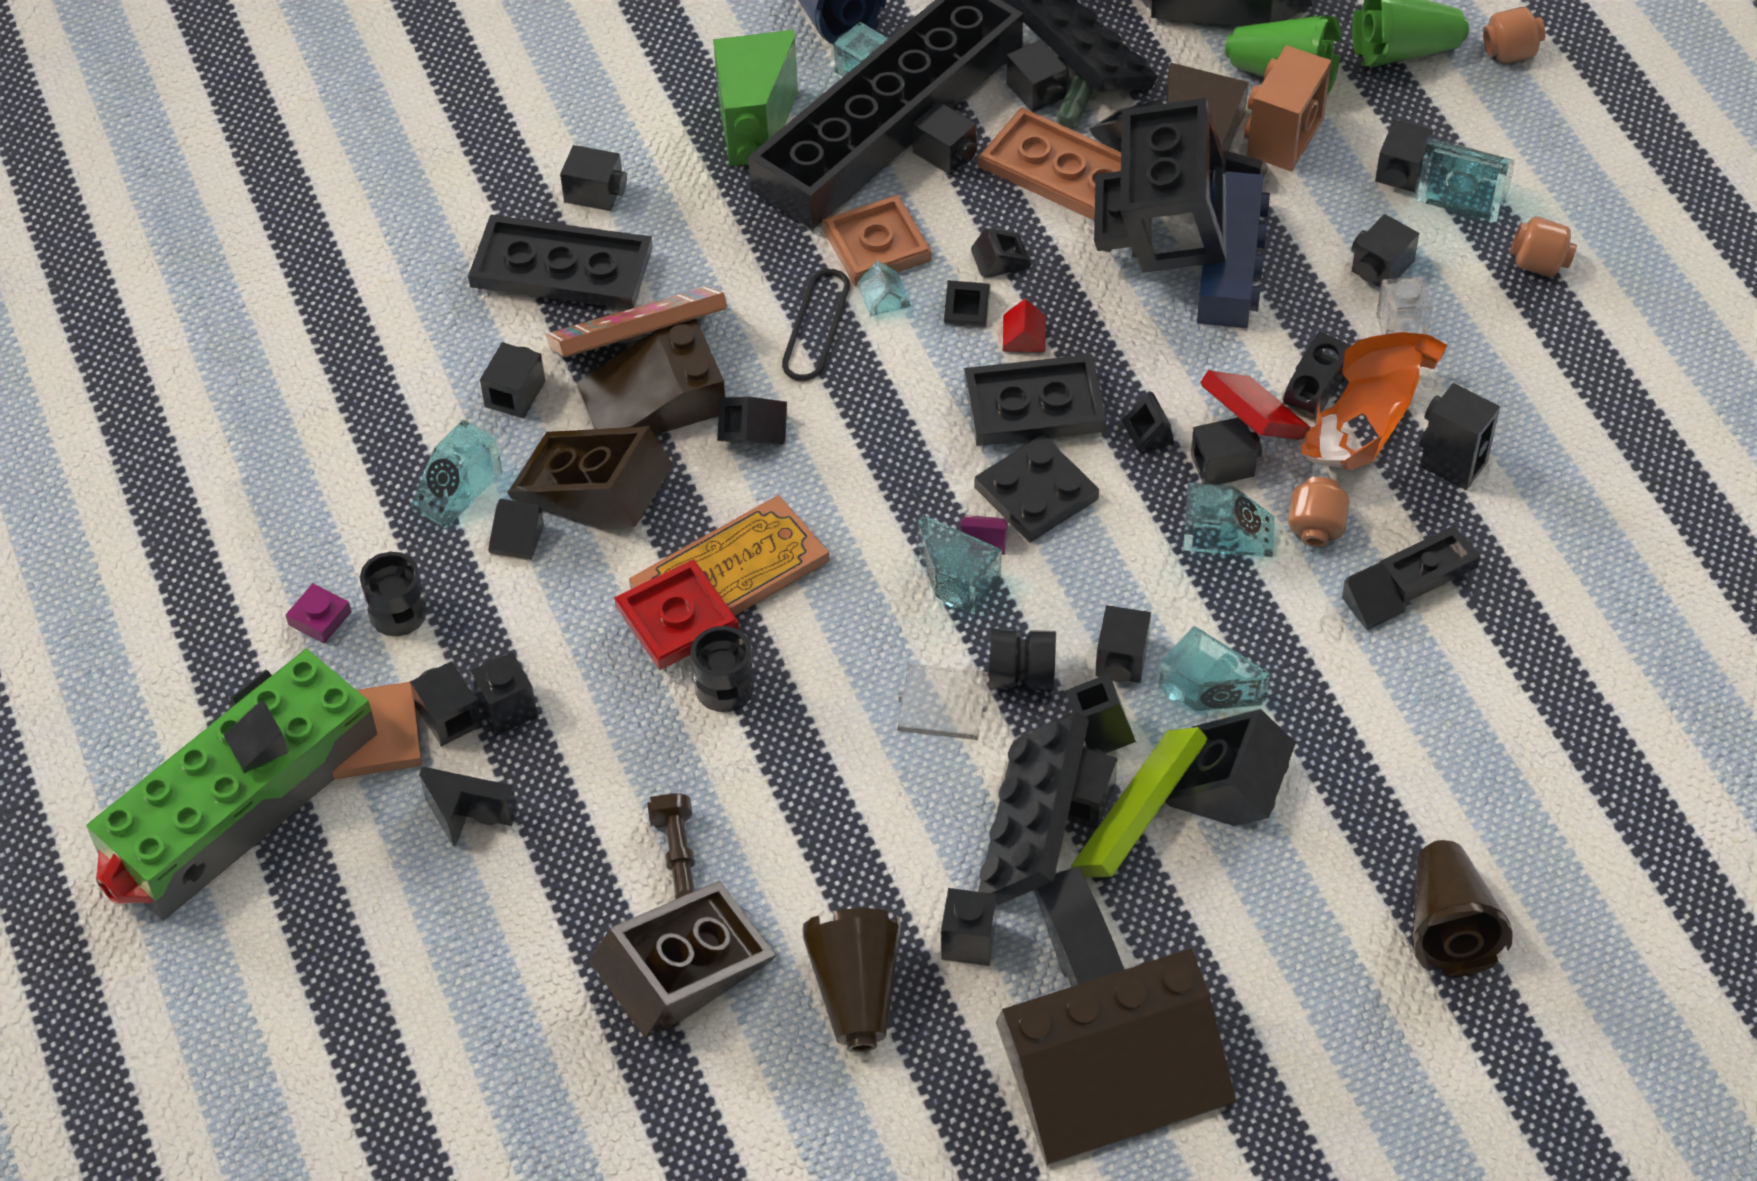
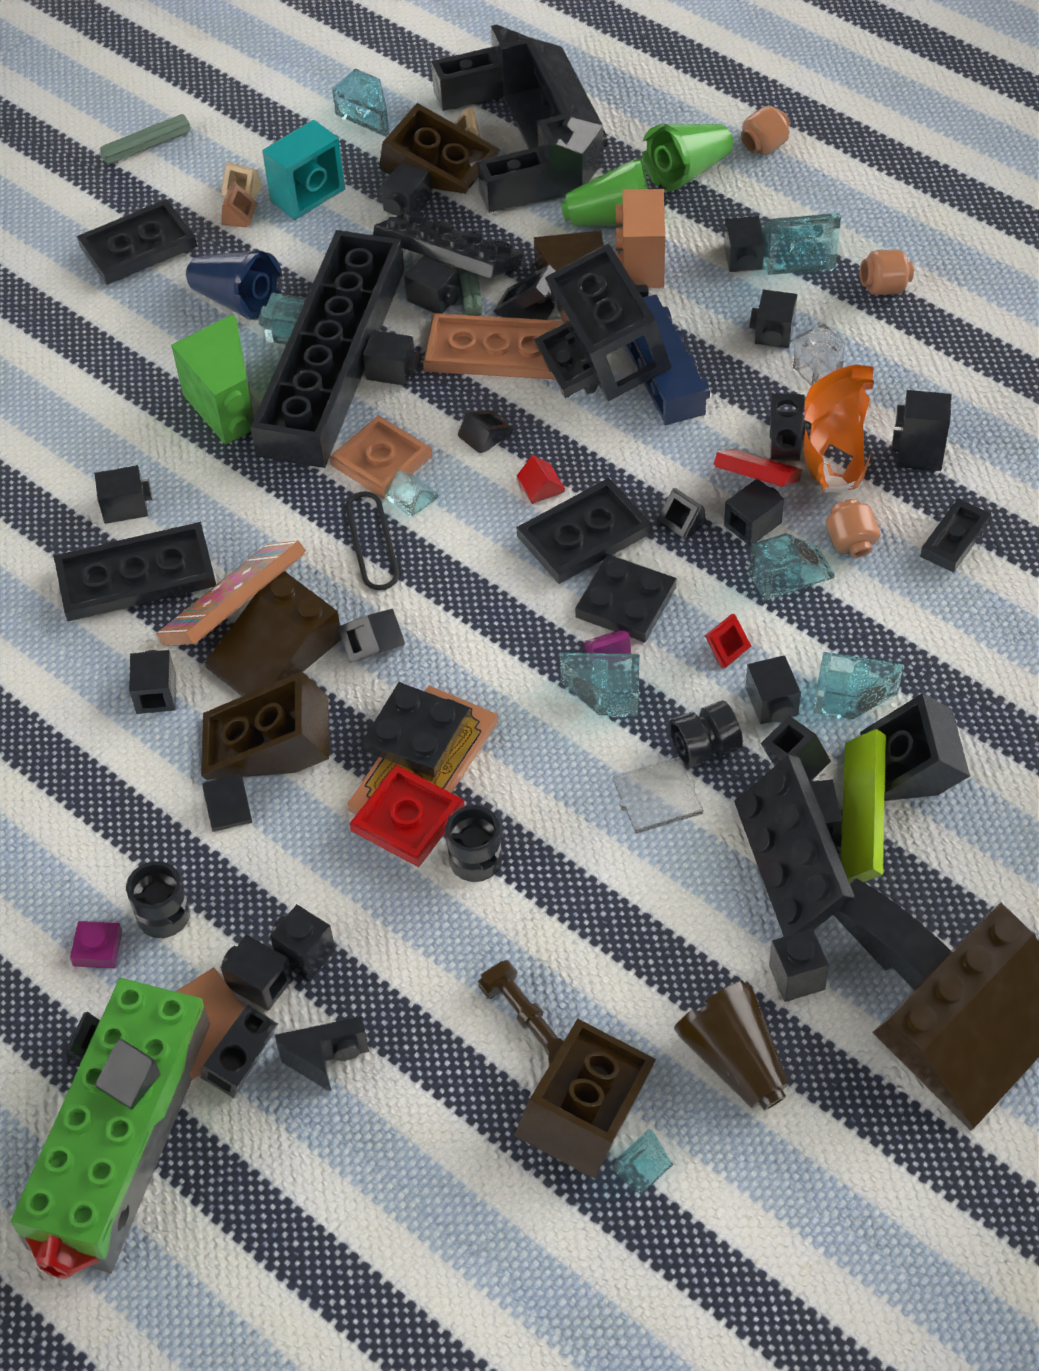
camera: 25 degrees left, 0 degrees up
(385, 767) = (238, 1051): none -> black leg
(457, 473) = (151, 777): clear light blue slope -> none
(701, 1044) = (643, 1162): none -> clear light blue slope
(737, 533) = (416, 729): none -> black plate
(967, 303) = (483, 477): black slope -> none
(1110, 575) = (728, 640): none -> red slope
(1372, 596) = (930, 576): black slope -> none

